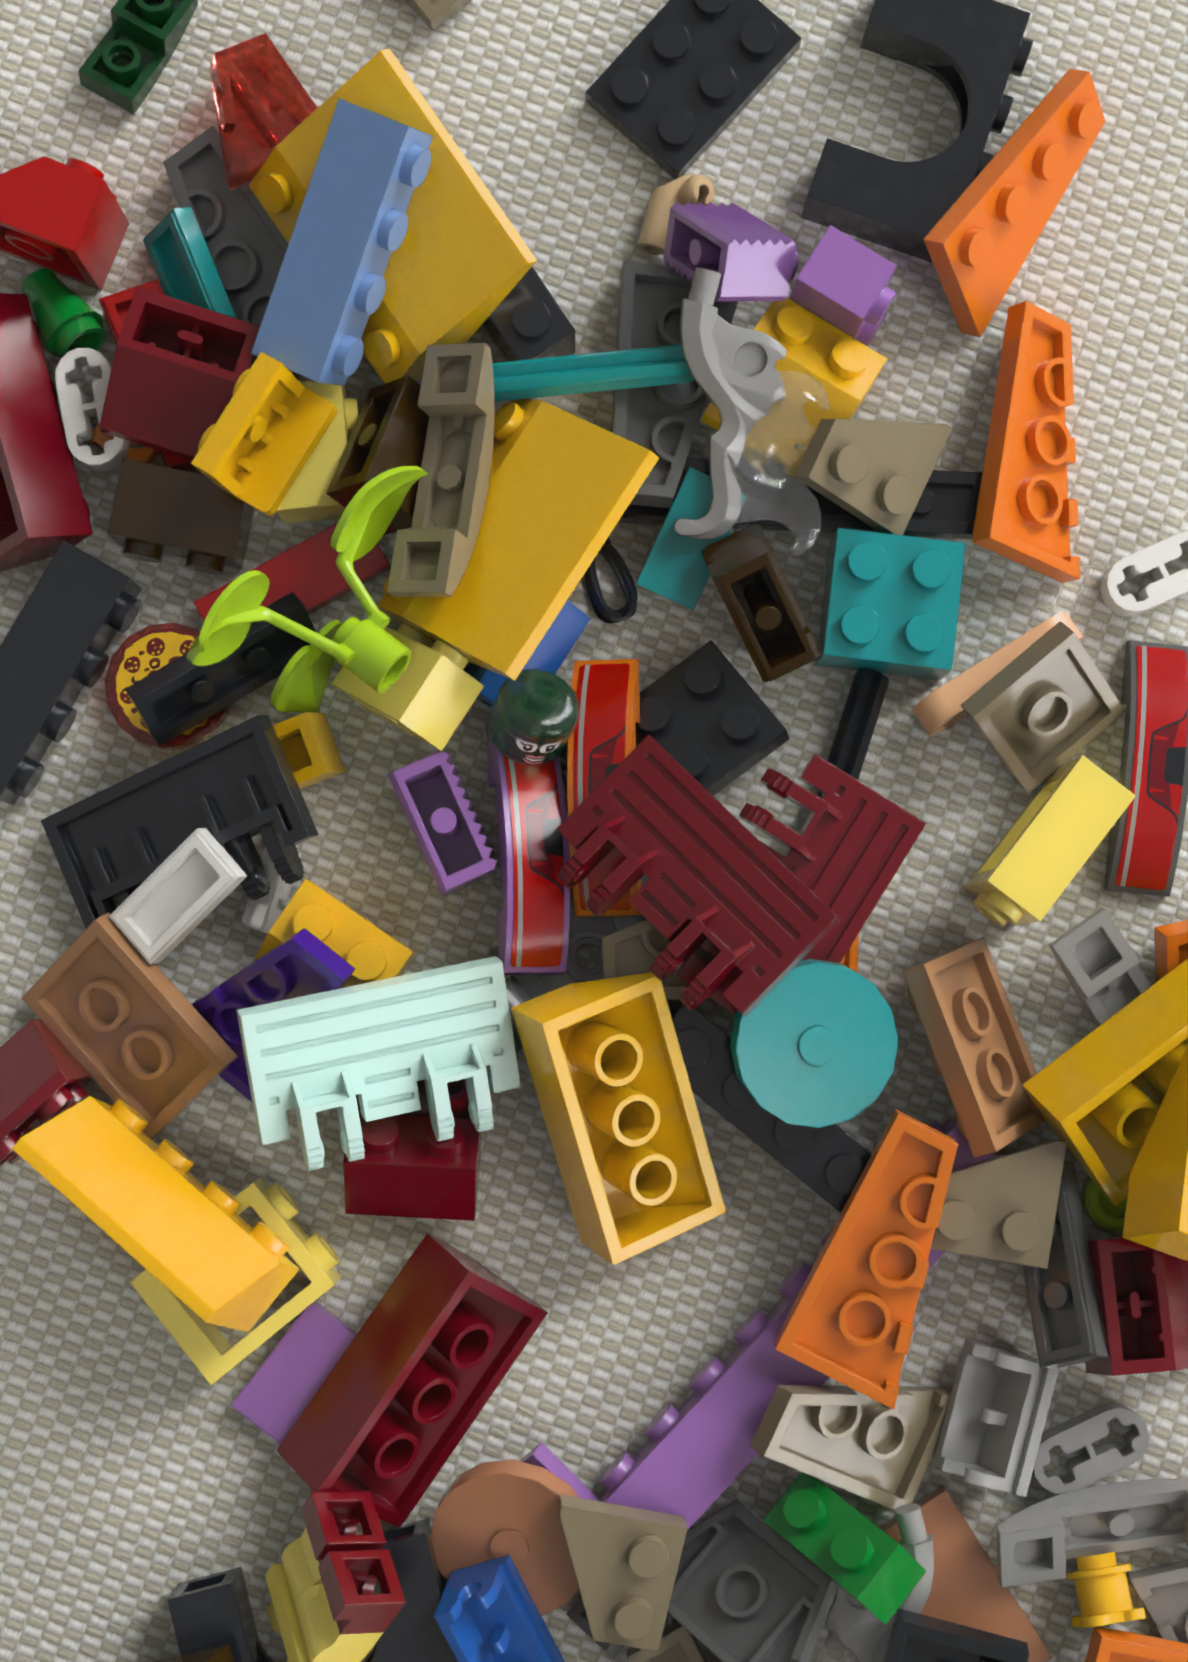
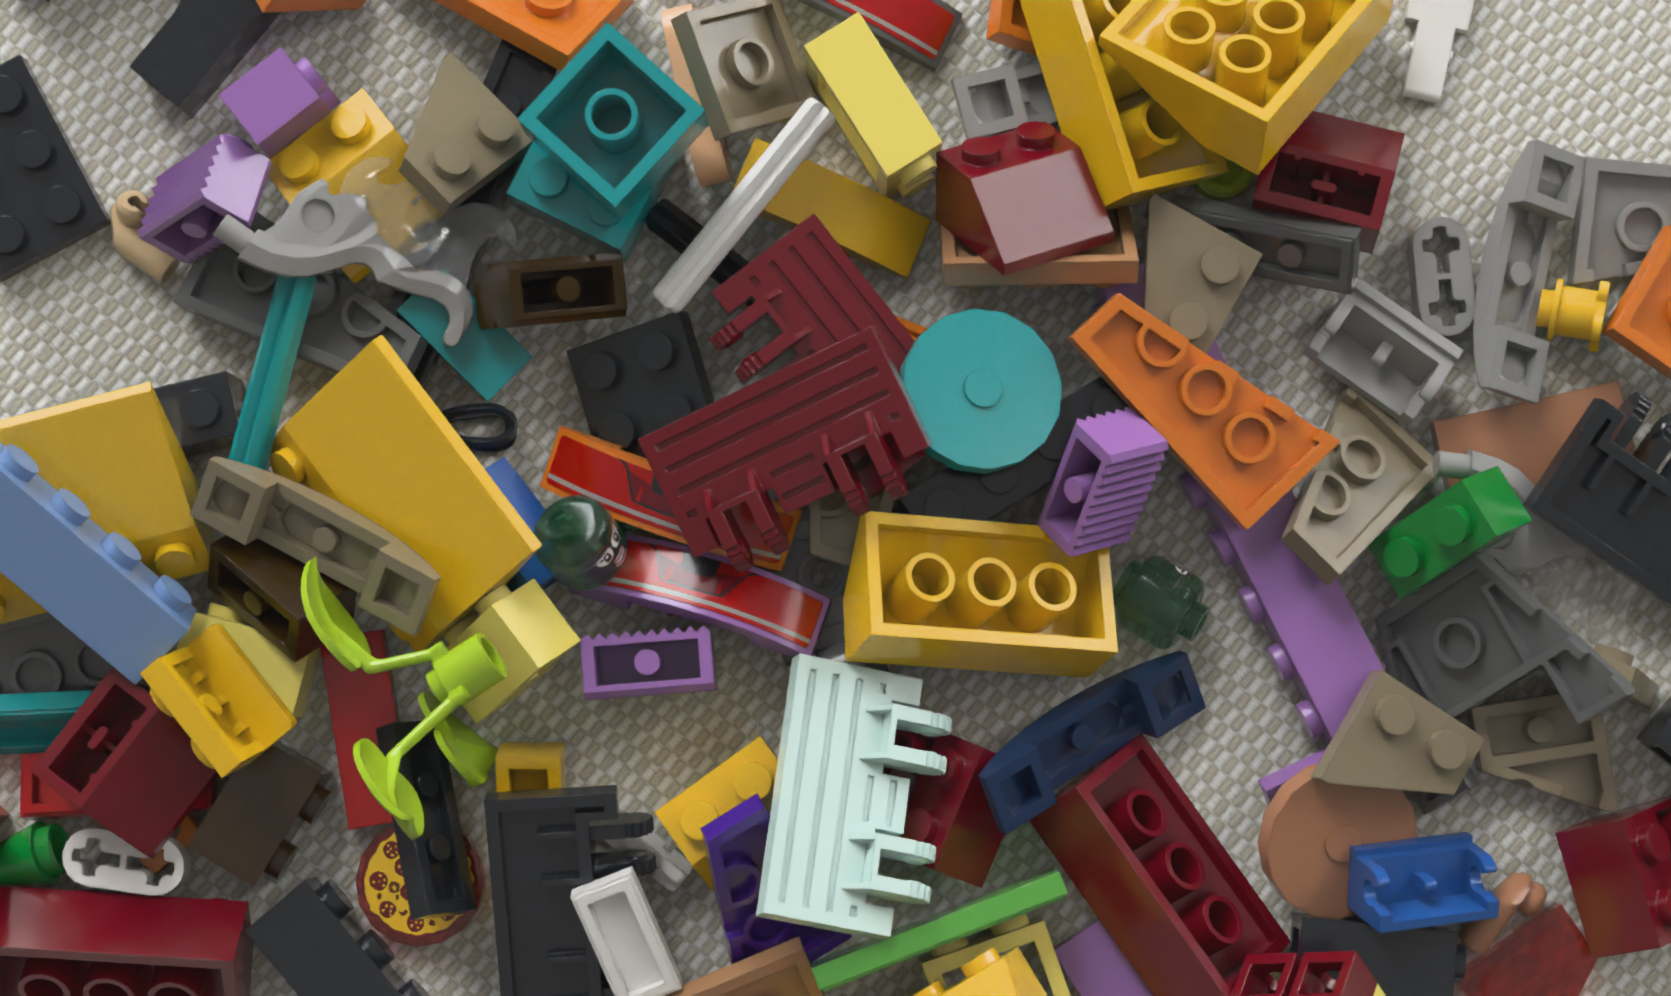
camera: 65 degrees left, 0 degrees up
(291, 1188) = (939, 929): none -> bright green tile
(529, 1258) = (1084, 731): none -> dark blue slope
(677, 1287) = (1160, 602): none -> clear green head
(770, 1192) = (1102, 481): none -> medium lavender brick
(909, 754) = (743, 205): none -> white axle
(937, 868) = (857, 217): none -> yellow slope
(944, 601) = (614, 121): none -> teal brick
(1014, 1015) = (1020, 197): none -> slope

